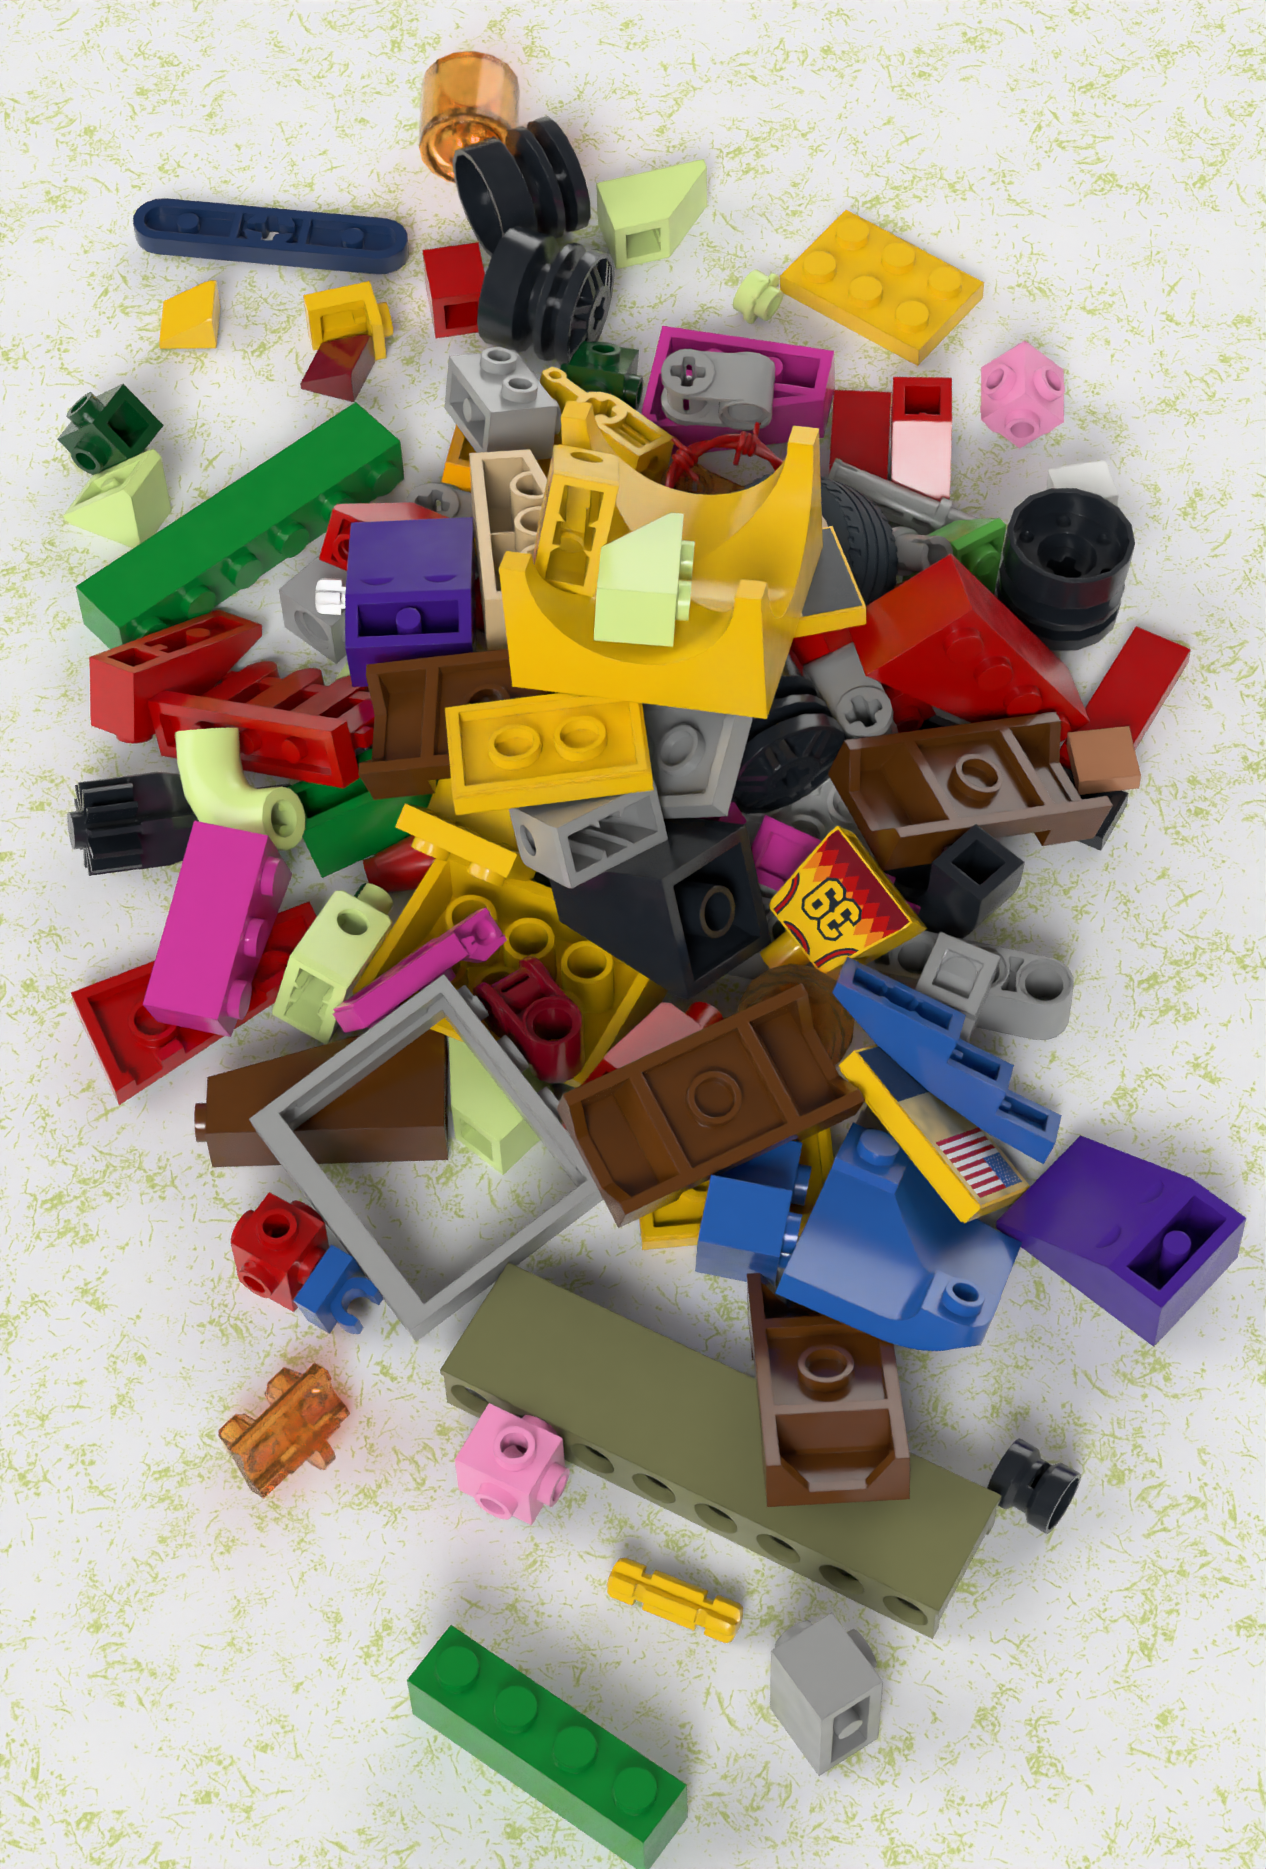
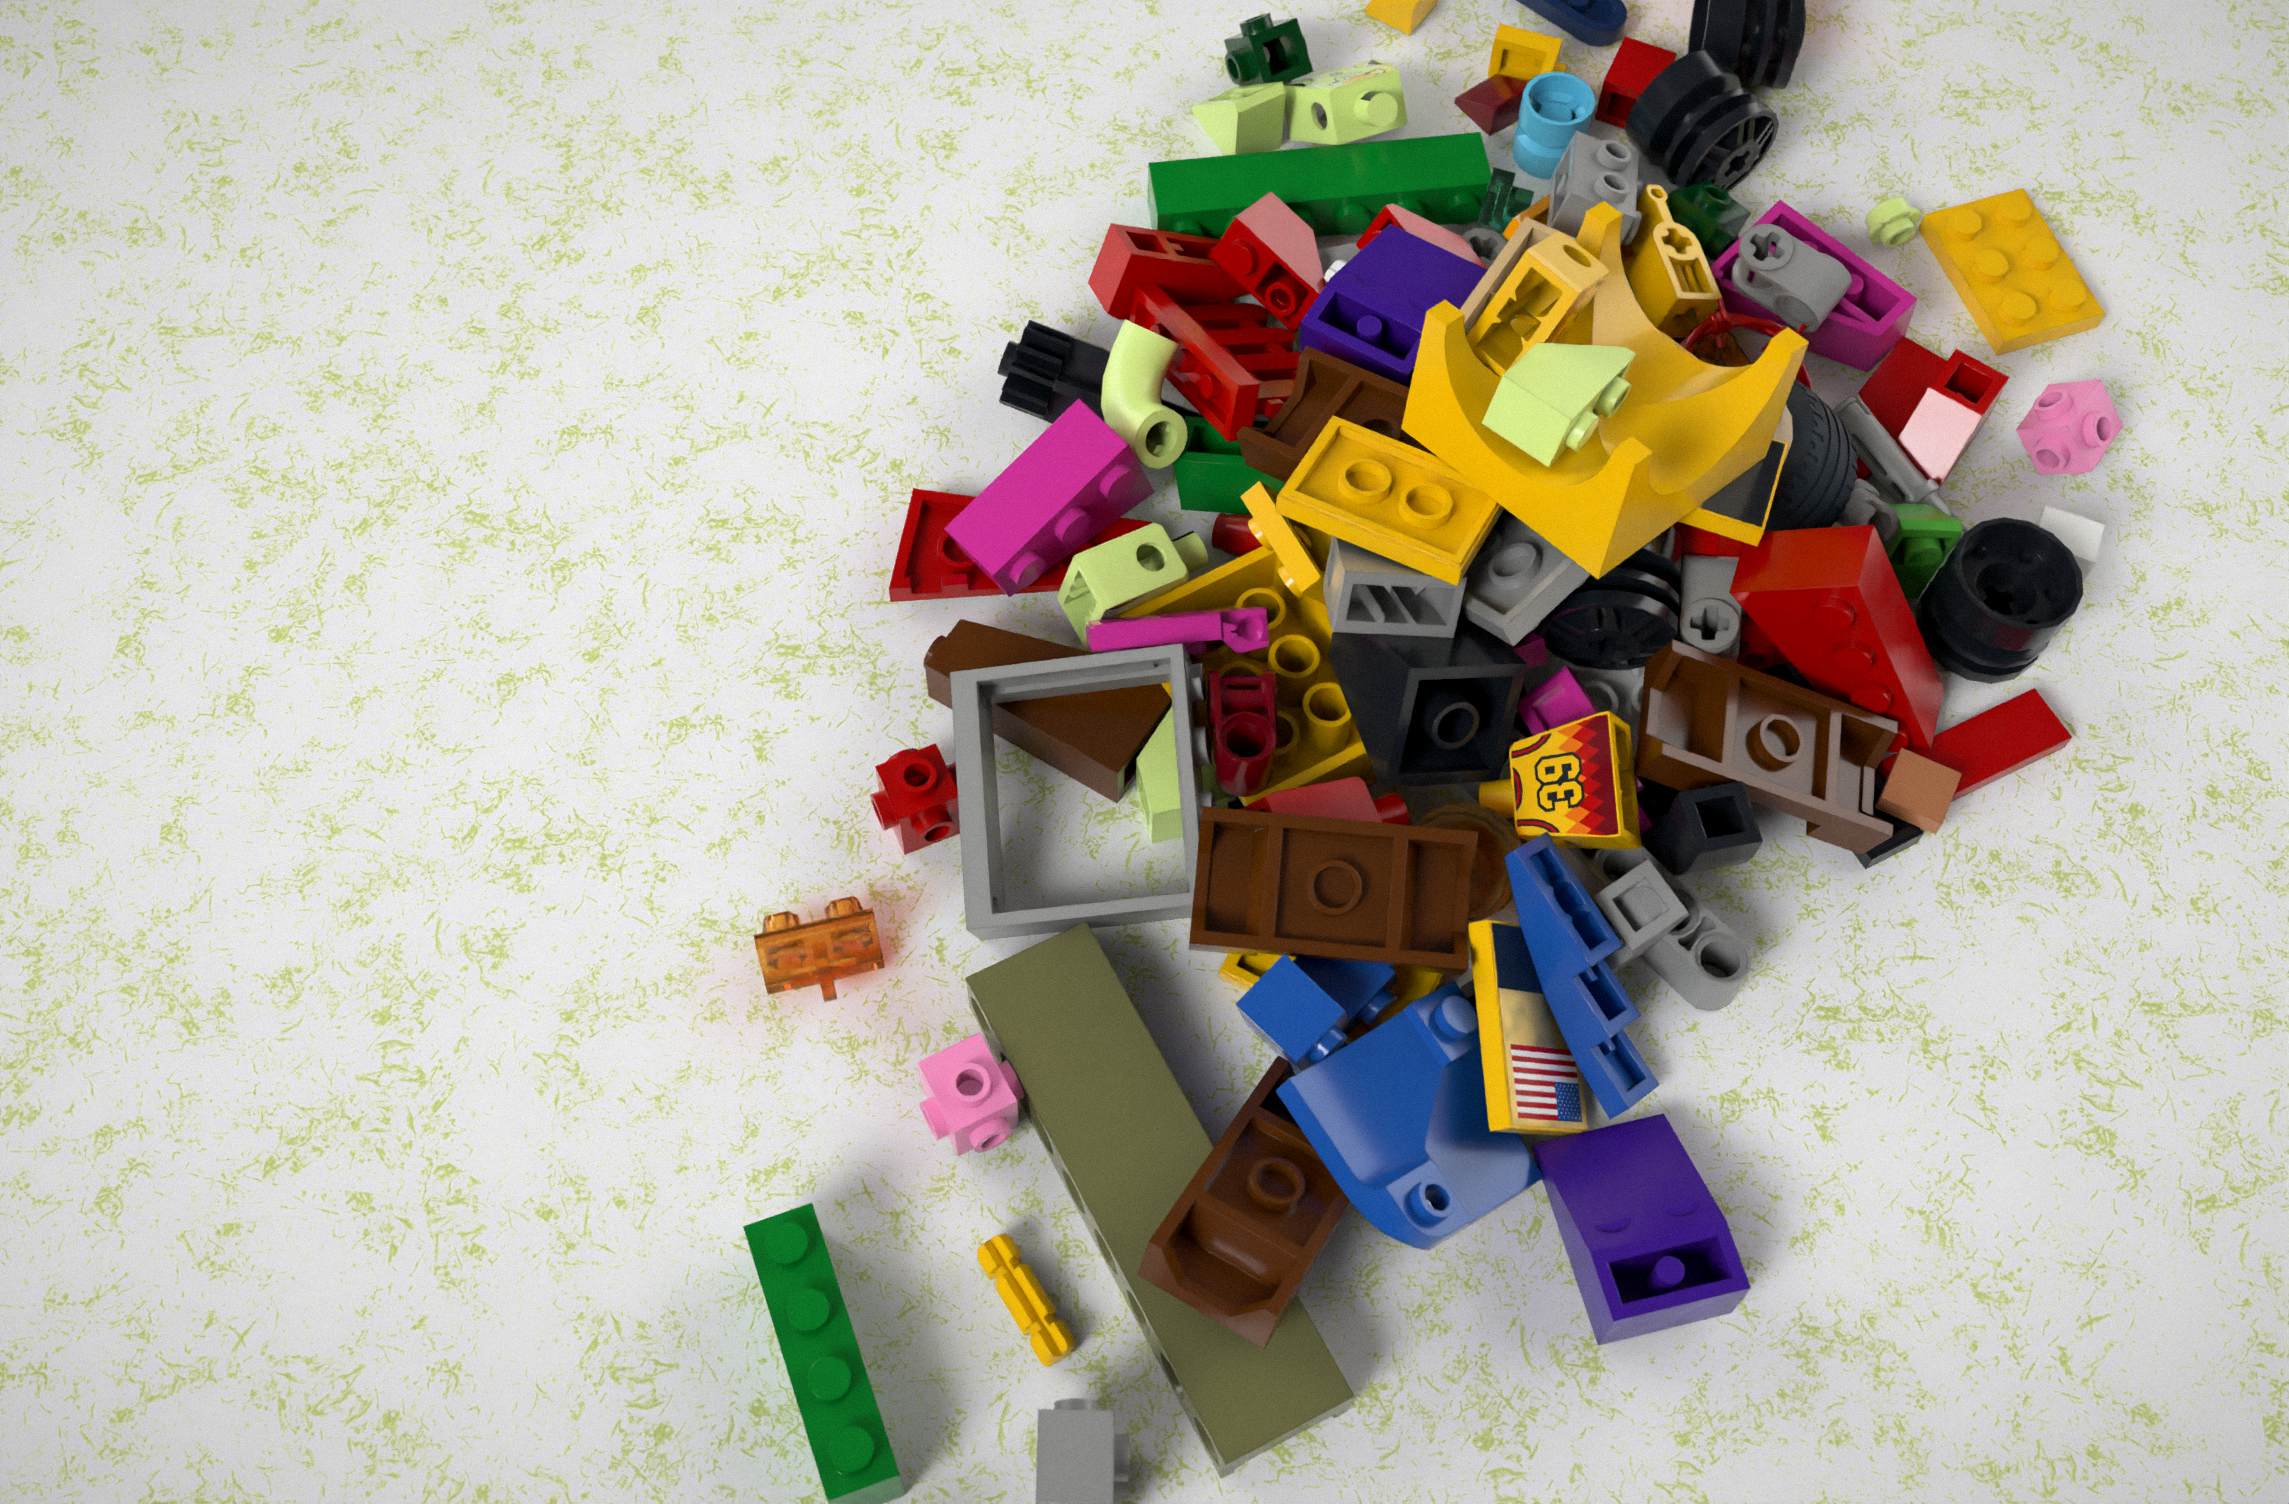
camera: 30 degrees right, 5 degrees up
(229, 425) = (1356, 104): none -> yellowish green torso
(259, 612) = (1273, 259): none -> red slope
(332, 1289) = (932, 857): blue tile -> none
(411, 362) = (1548, 117): none -> medium azure wheel
(422, 454) = (1503, 201): none -> clear green slope
(650, 211) = (1849, 104): yellowish green slope -> none
(1034, 1485) = (1397, 1403): black wheel -> none

